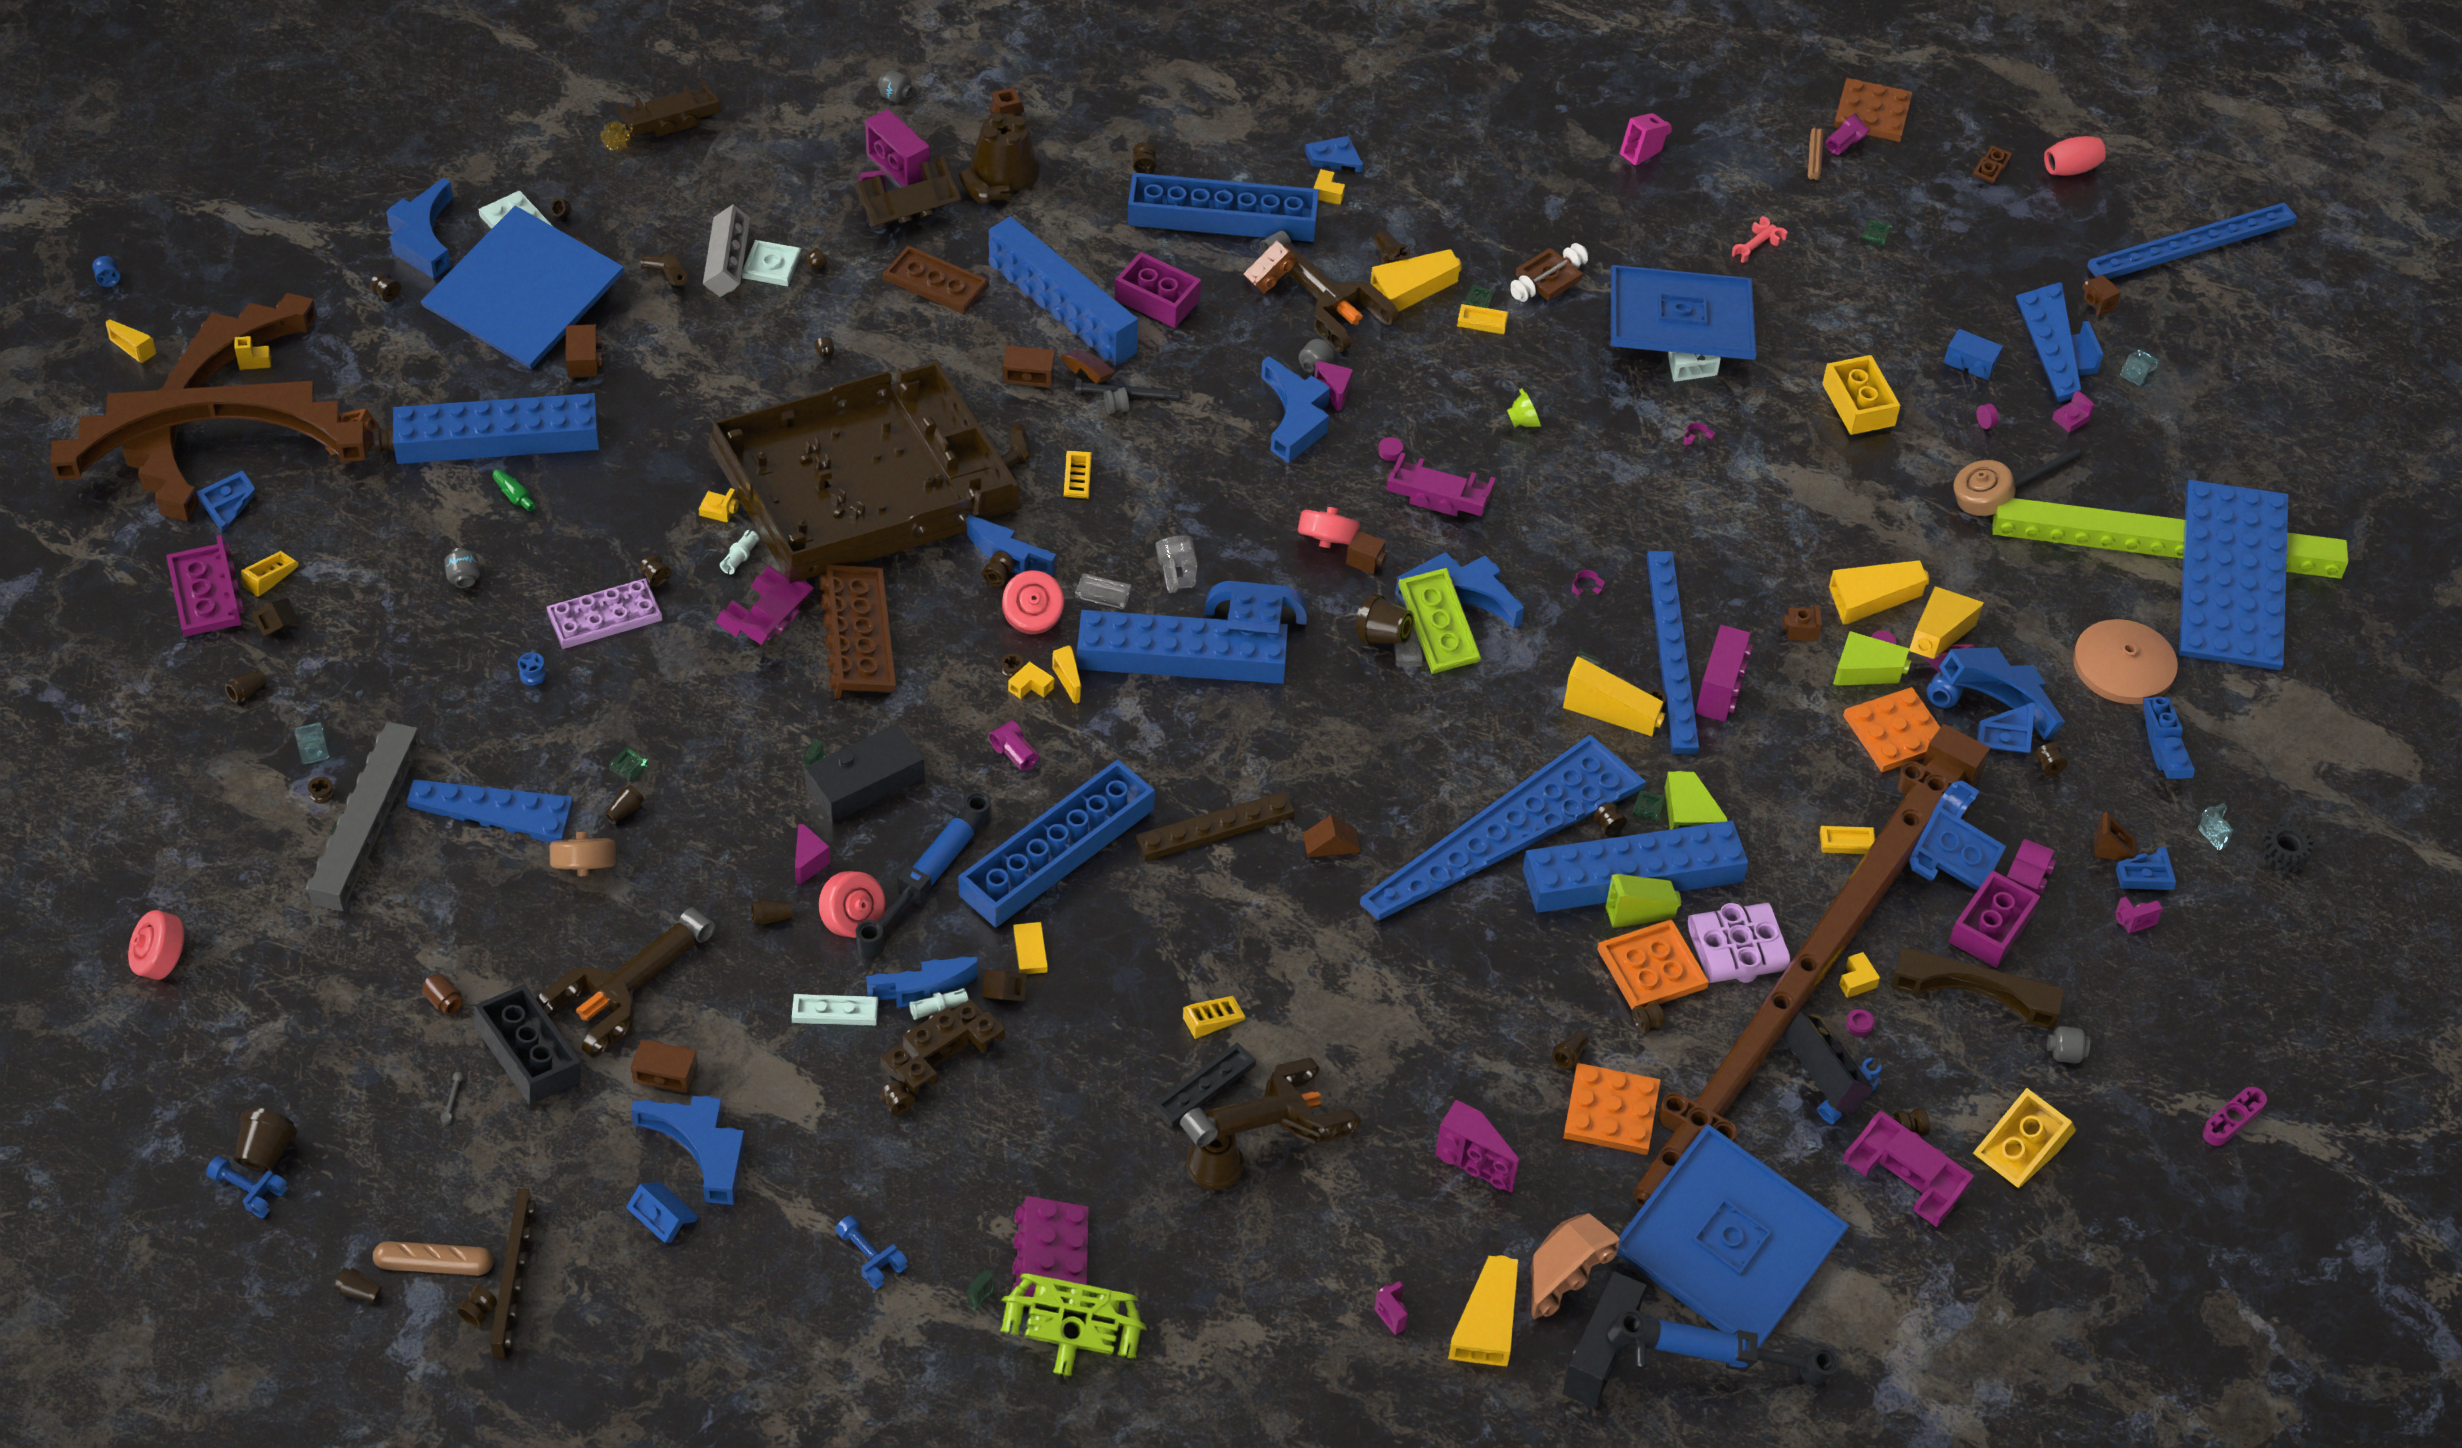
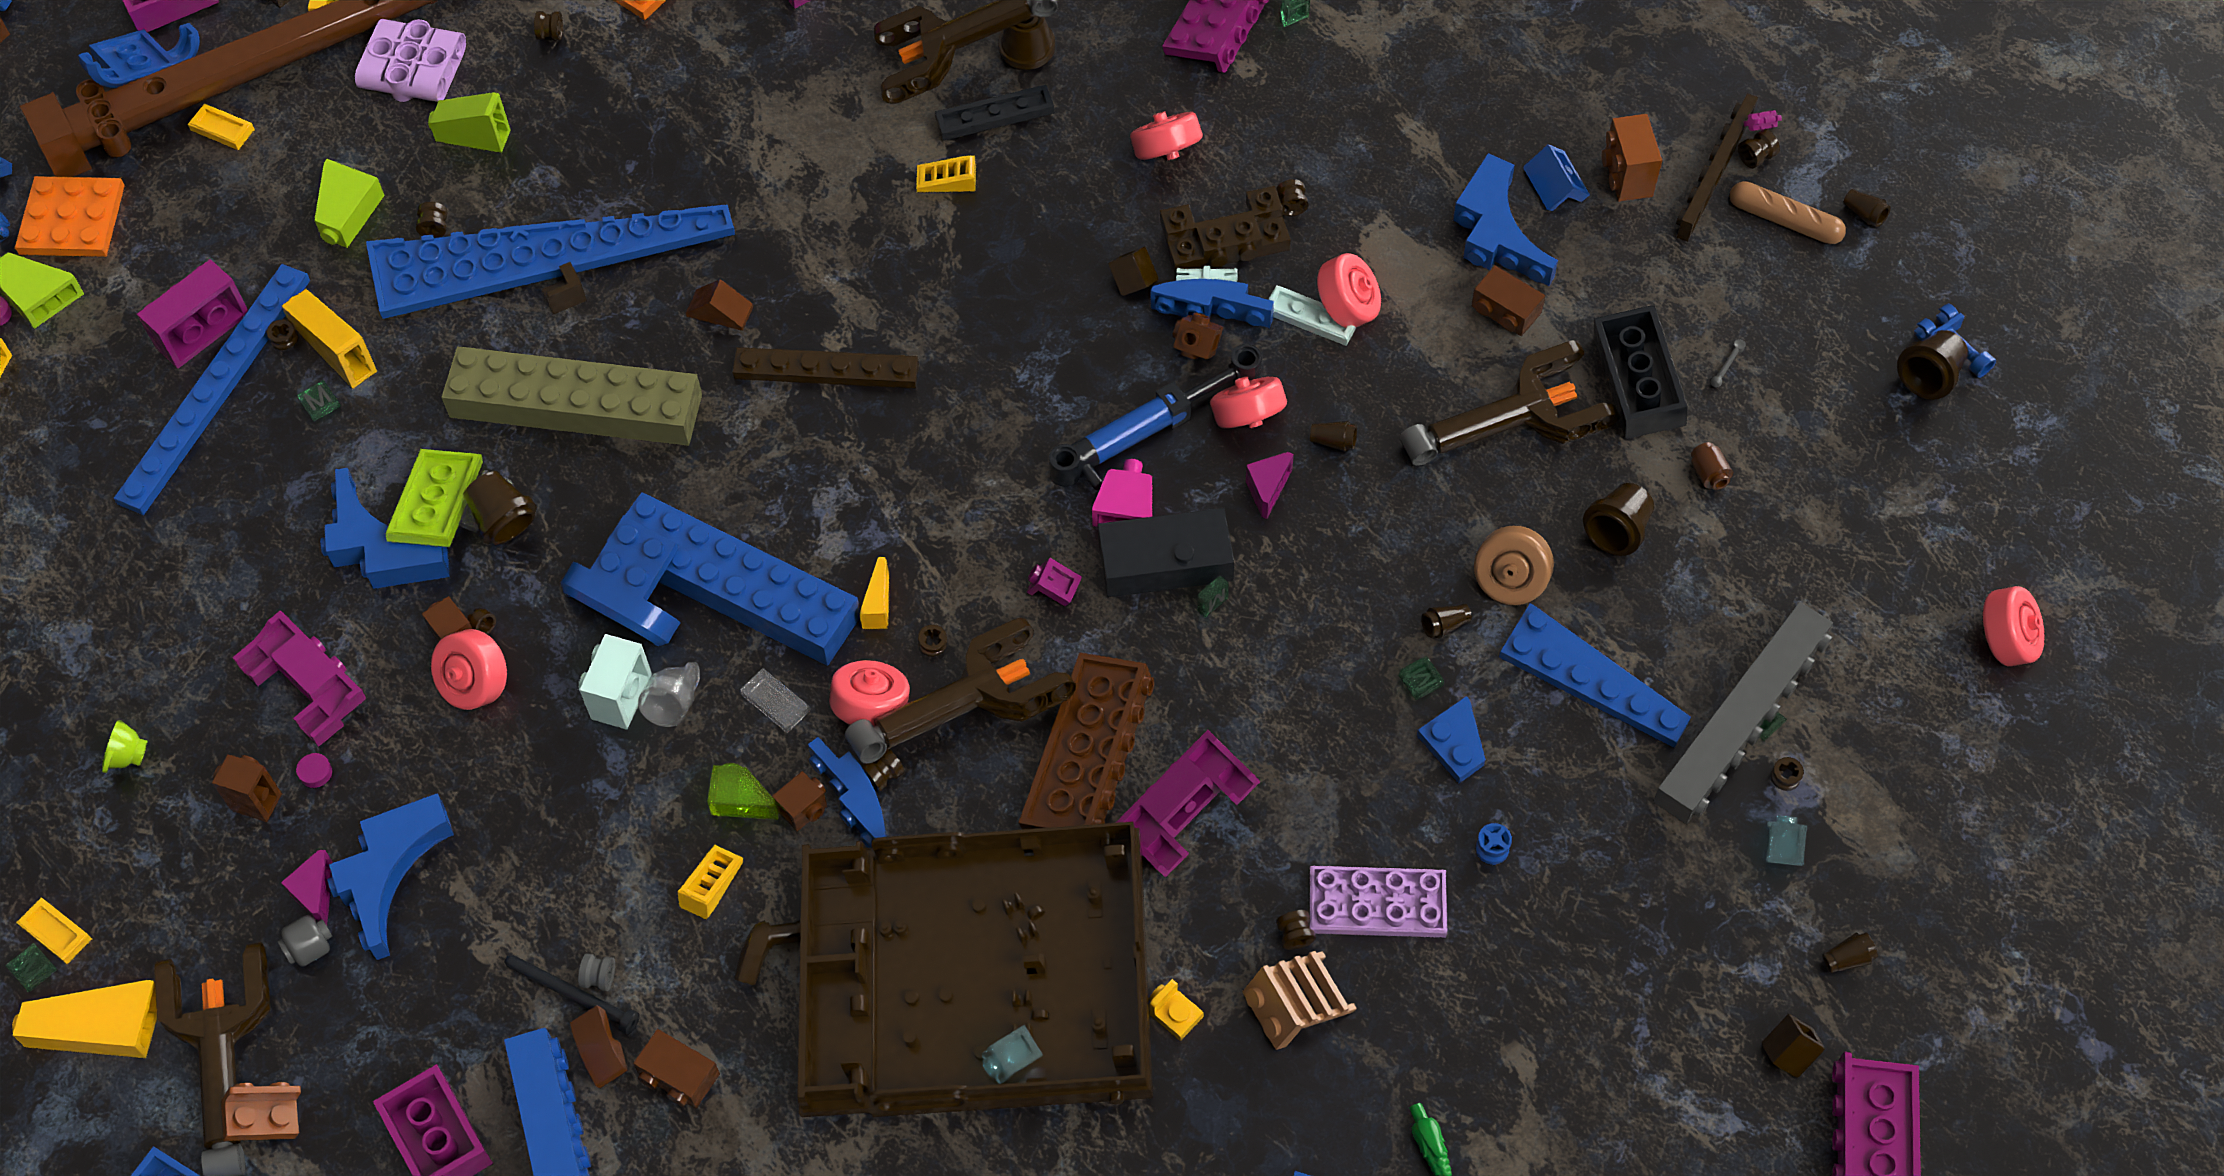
camera: 150 degrees left, 10 degrees up
(259, 577) = (1810, 1117): yellow slope -> none
(462, 567) = (1536, 1027): dark grey head -> none
(479, 1329) = (1762, 120): none -> magenta axle
(506, 913) = (1619, 519): none -> dark brown piece
(586, 730) = (1455, 740): none -> blue wing
(595, 1233) = (1632, 157): none -> dark orange brick
(642, 518) = (1283, 1006): none -> medium nougat plate
(739, 552) = (1179, 922): light aqua pin -> none
(808, 1026) = (1349, 290): none -> coral wheel
(809, 420) = (1010, 1054): none -> clear light blue bracket
(849, 1229) = (1389, 100): blue bar -> none
(914, 802) = (1123, 495): none -> dark pink torso
(920, 931) = (1197, 336): none -> reddish brown brick
(941, 726) = (1054, 581): none -> magenta bracket
(955, 629) = (978, 686): none -> dark brown piece
(1011, 741) = (986, 535): magenta piece -> none
(1030, 678) = (924, 611): yellow piece -> none
(1030, 948) = (1086, 306): yellow tile -> none
(1036, 1109) = (1166, 135): none -> coral wheel
(1044, 530) = (801, 800): none -> reddish brown brick
(1056, 843) = (1002, 388): blue brick -> none
(1087, 523) = (739, 794): none -> clear neon green slope
(1218, 546) = (614, 681): none -> light aqua brick
(1348, 566) = (487, 618): none -> dark brown hinge
(1389, 247) = (84, 1086): dark brown arm -> none
(1393, 726) = (572, 395): none -> olive brick
(1418, 408) = (246, 787): none -> reddish brown brick
(1461, 807) = (566, 292): none -> dark brown panel
(1569, 1051) = (639, 25): dark brown cone -> none
(1591, 574) = (251, 503): magenta piece -> none
(1648, 805) = (379, 227): clear green tile -> none
(1653, 965) = (508, 65): orange plate -> none
(1685, 856) = (450, 161): blue brick -> none
(1802, 623) = (55, 356): reddish brown brick -> none
(2031, 866) = (84, 27): magenta brick -> none

